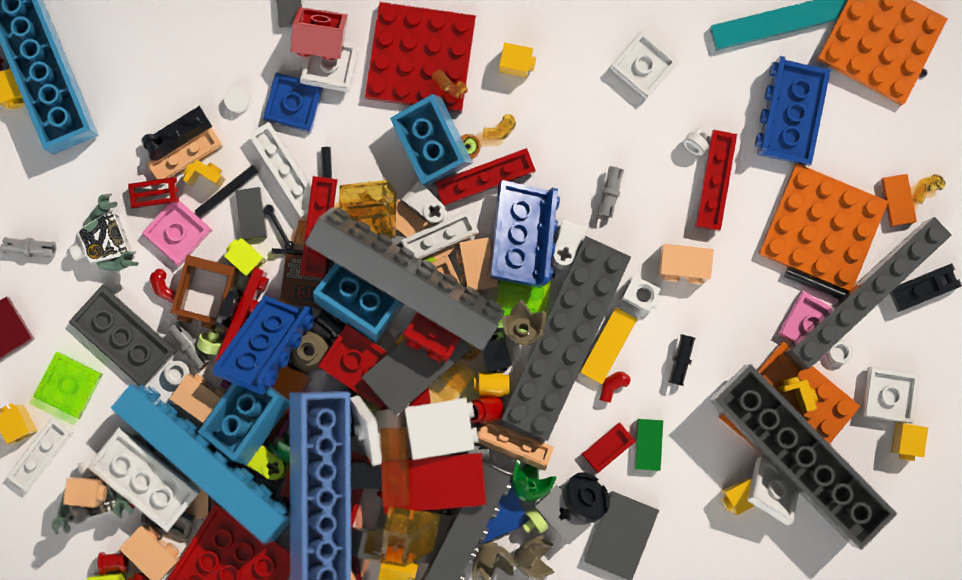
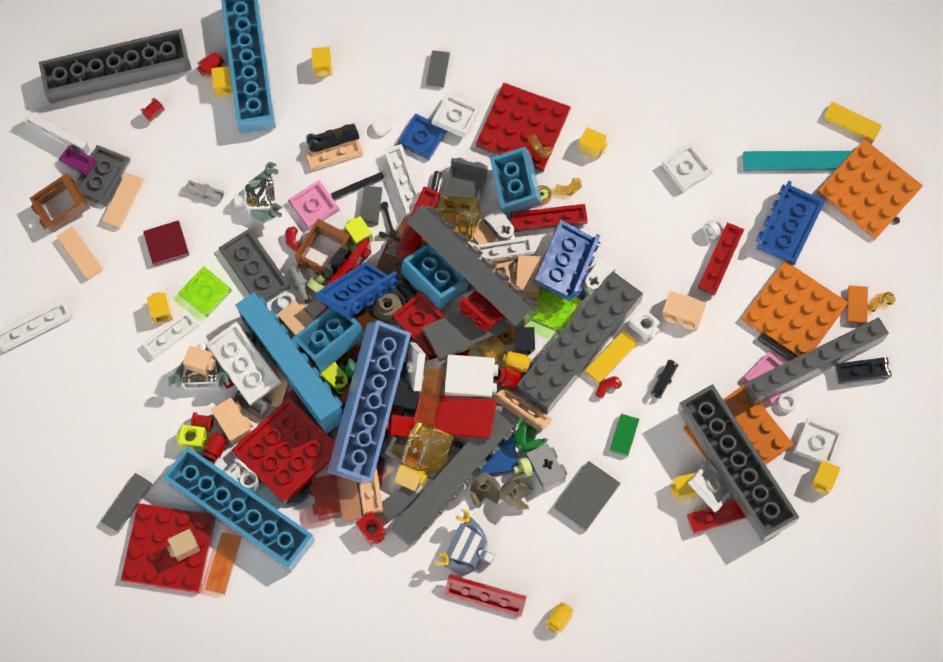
camera: 20 degrees right, 15 degrees down
(78, 515) = (191, 372): dark grey bar -> none
(133, 29) = (321, 61): none -> yellow brick
(172, 190) = (319, 167): red tile -> none
(210, 172) = (346, 167): yellow bracket -> none
(318, 33) = (453, 92): slope -> none
(364, 154) = (465, 179): none -> dark grey panel
(367, 511) = (399, 426): none -> red brick
(523, 319) = (549, 321): dark tan piece -> none
(586, 497) = (566, 457): black tile -> none
(608, 447) = (593, 430): red tile -> none
(610, 192) = (639, 249): light grey pin -> none
(774, 532) = (708, 519): none -> red plate
(805, 395) = (751, 421): yellow bracket -> none

